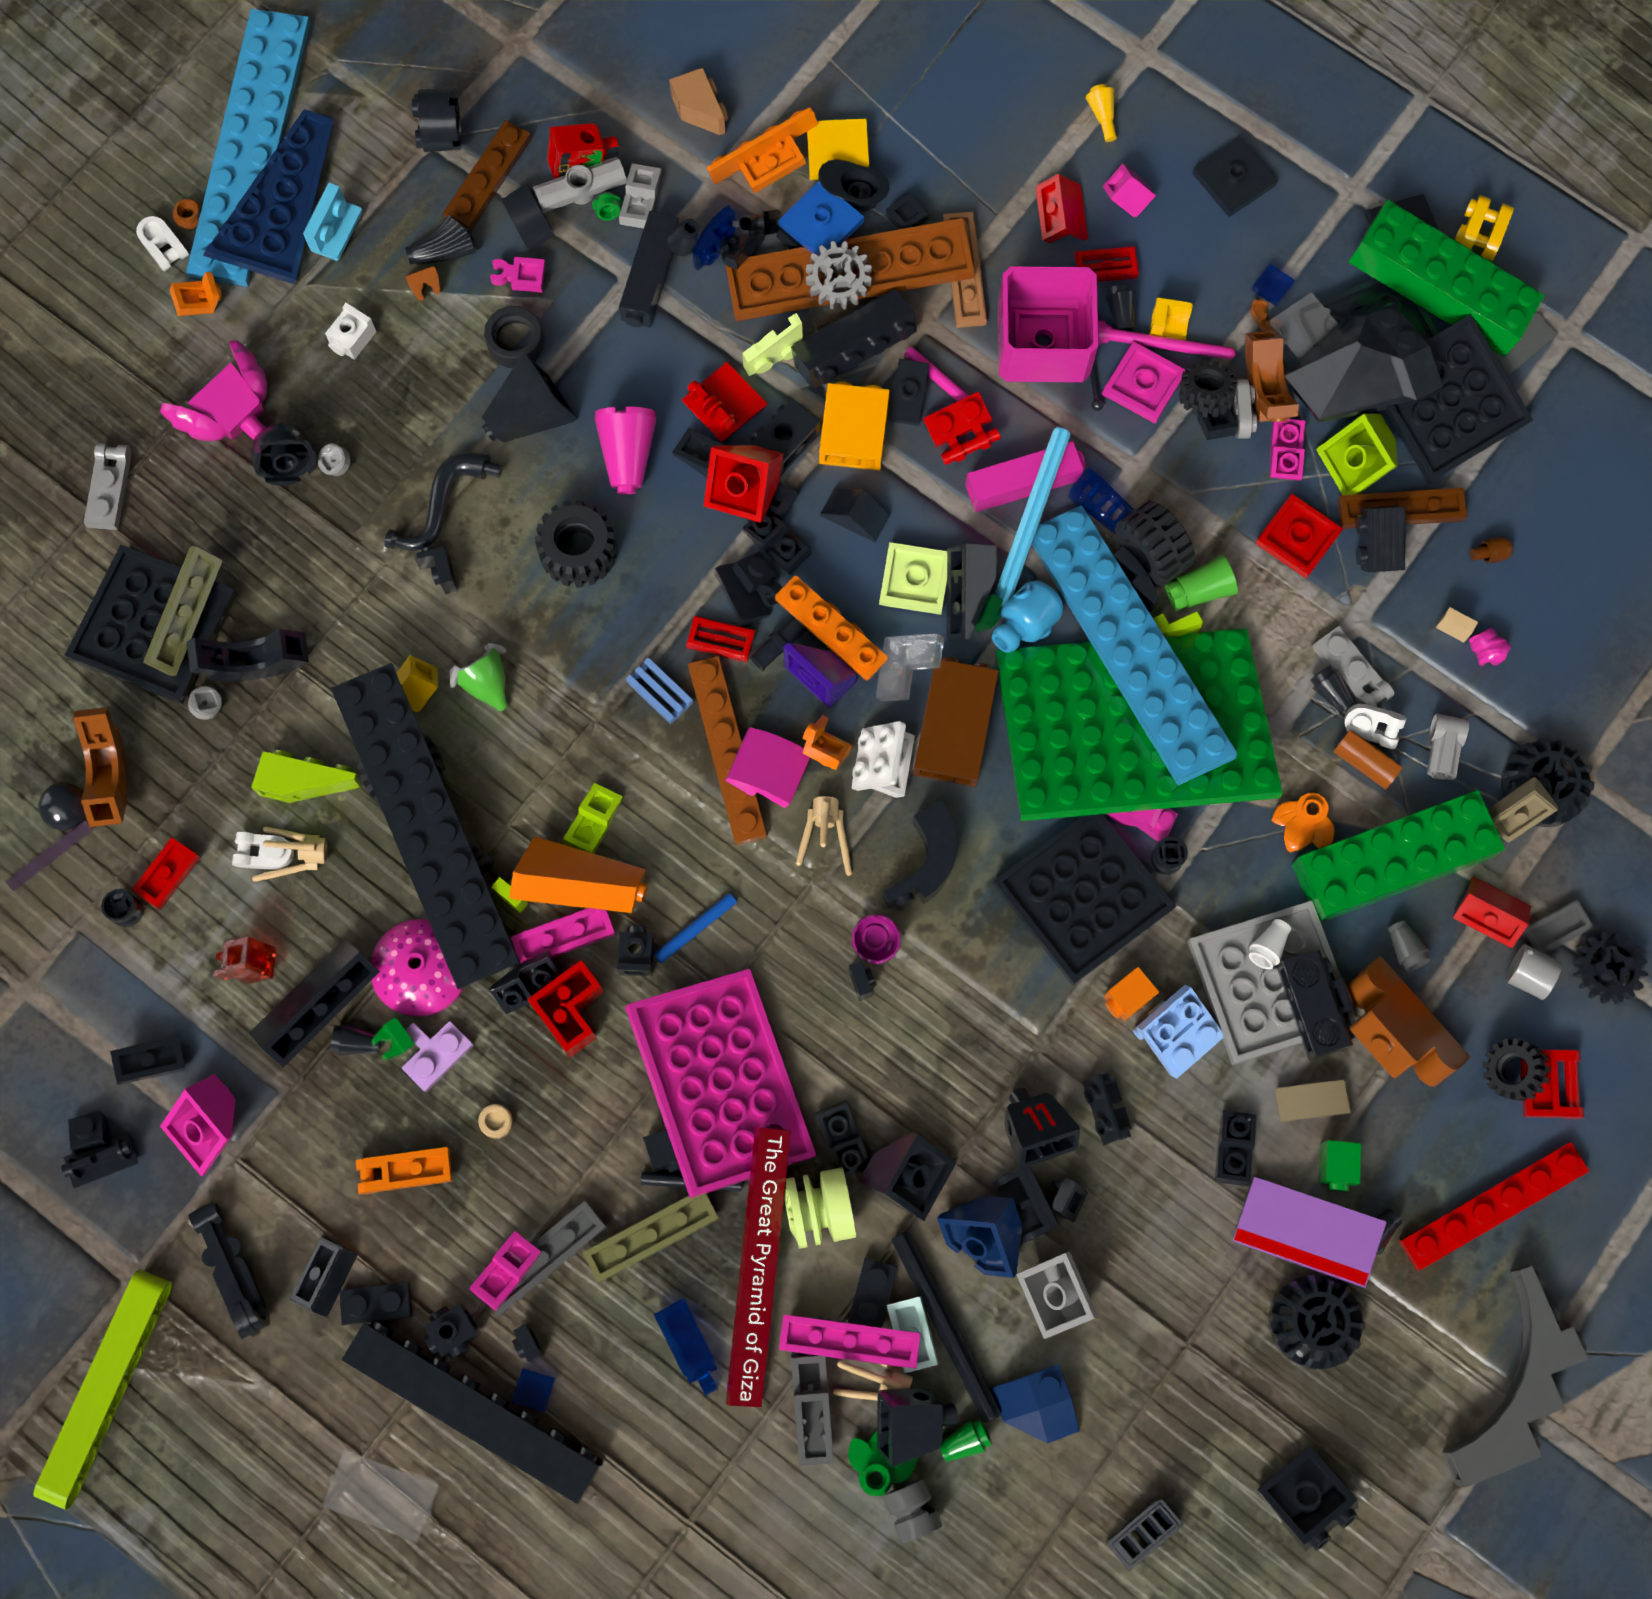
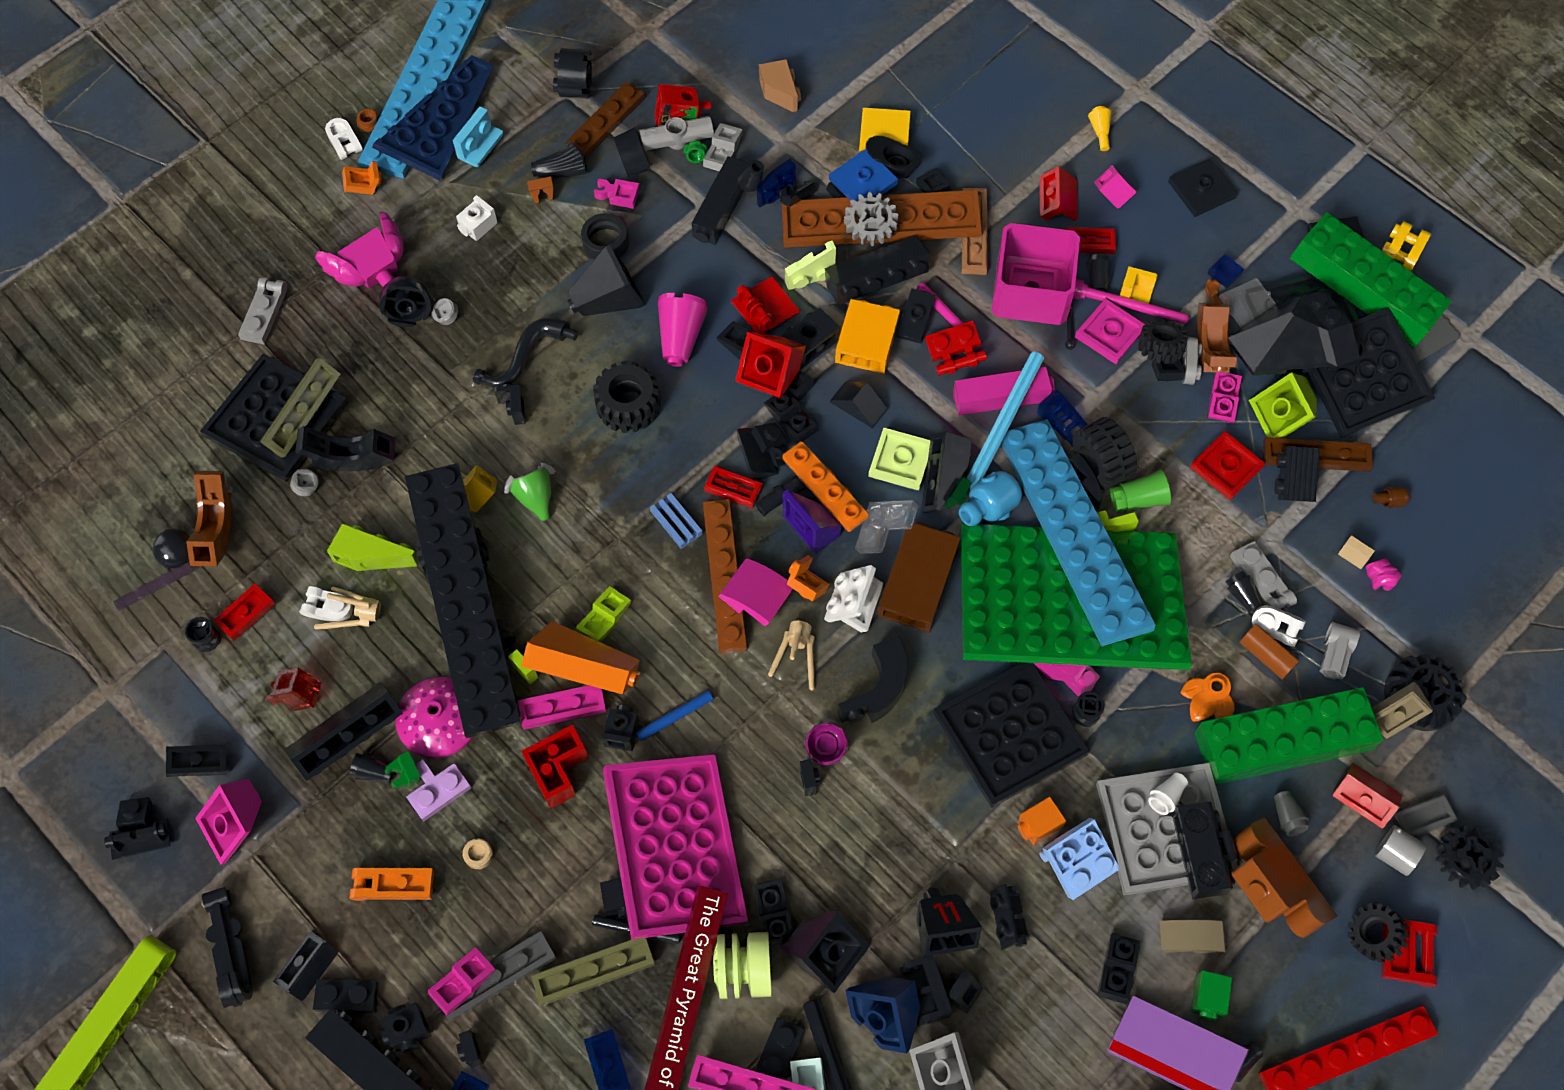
camera: 10 degrees right, 10 degrees down
(524, 981) = (512, 742): black slope -> none
(768, 155) = (828, 127): orange bracket -> none
(768, 221) = (820, 176): black piece -> none

